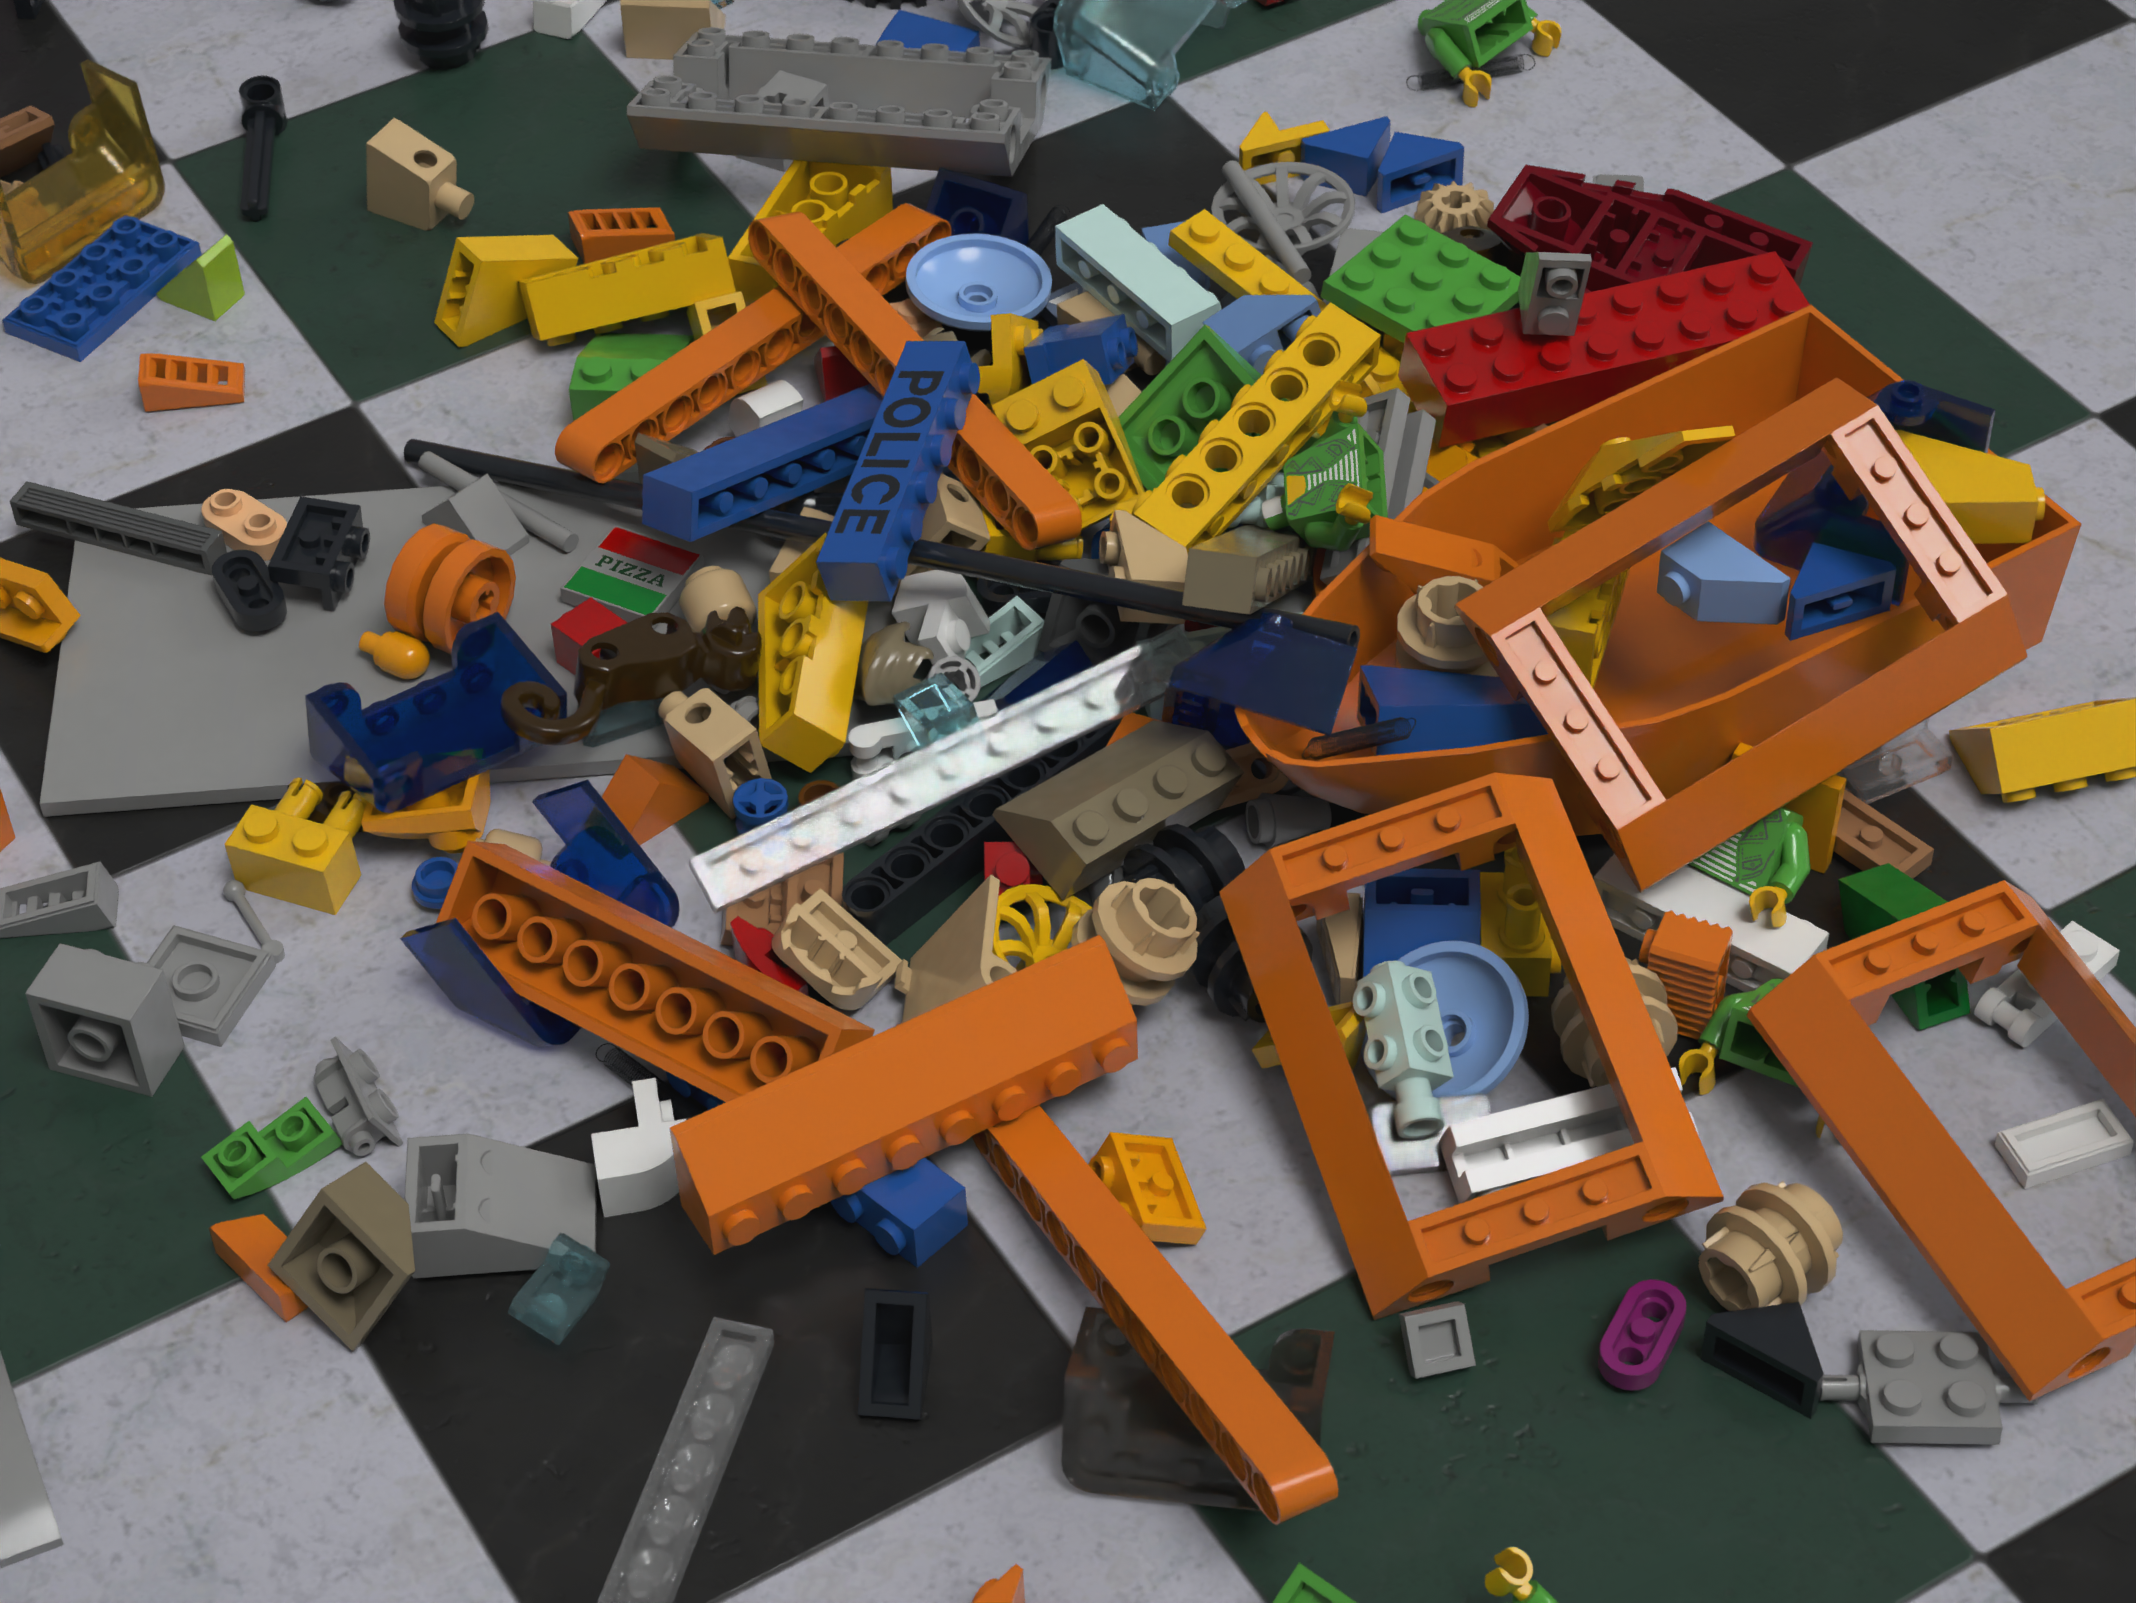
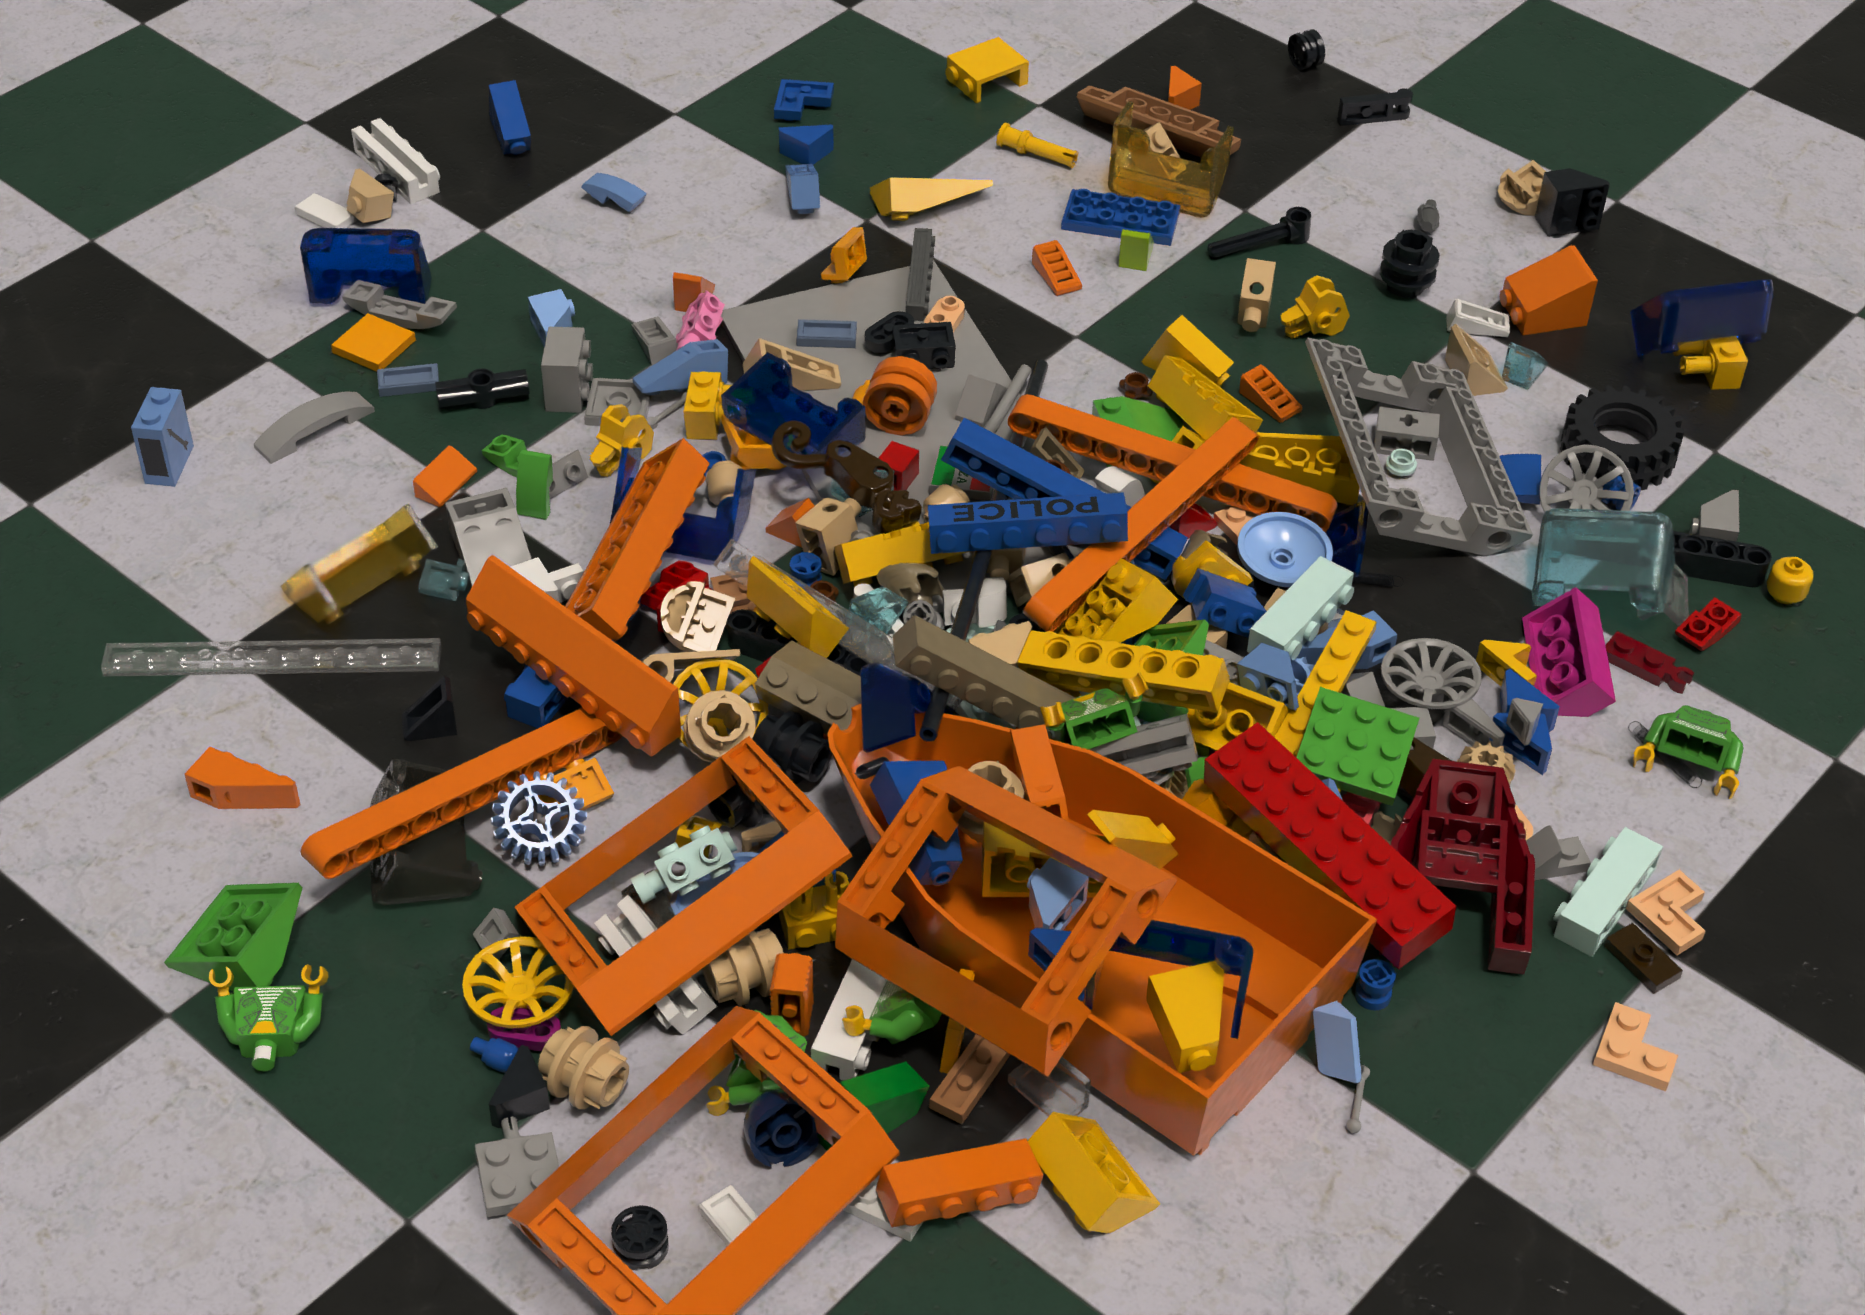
camera: 70 degrees right, 0 degrees up
(62, 1164) = (482, 388): none -> black piece
(85, 834) = (701, 320): none -> bright pink brick
(192, 860) = (675, 369): none -> medium blue slope
(196, 672) = (826, 333): none -> sand blue tile
(272, 733) = (806, 370): none -> tan slope
(336, 979) = (618, 434): none -> yellow hinge
(349, 1253) = (442, 483): dark tan slope -> none
(393, 1104) = (533, 484): none -> bright green slope
(451, 1426) = (360, 566): none -> clear yellow windscreen
(483, 130) = (1316, 310): none -> yellow hinge
(522, 359) = (1136, 386): none -> reddish brown plate
(922, 798) = (792, 609): none -> yellow slope
(1212, 1214) = (552, 812): none -> light blue gear
(1241, 79) = (1570, 654): none -> dark pink slope
(1266, 222) = (1401, 663): light grey bar -> none
(1304, 43) = (1647, 662): none -> dark red plate
(1371, 195) = (1472, 724): none -> light grey slope
(1421, 139) = (1524, 718): none -> light grey slope
(1552, 292) = (1309, 772): light grey slope -> none
(1571, 1320) = (517, 988): none -> yellow wheel
(1682, 1379) = (495, 1053): none -> blue cylinder
(1683, 158) = (1604, 895): none -> light aqua brick
(1739, 146) = (1663, 911): none -> light nougat plate
(1801, 182) = (1643, 958): none -> dark brown plate
(1919, 1042) = (779, 1129): none -> dark blue cylinder
(1939, 240) = (1627, 1055): none -> light nougat plate
(2065, 865) = (959, 1182): none -> orange brick
(2079, 1248) = (640, 1239): none -> black wheel

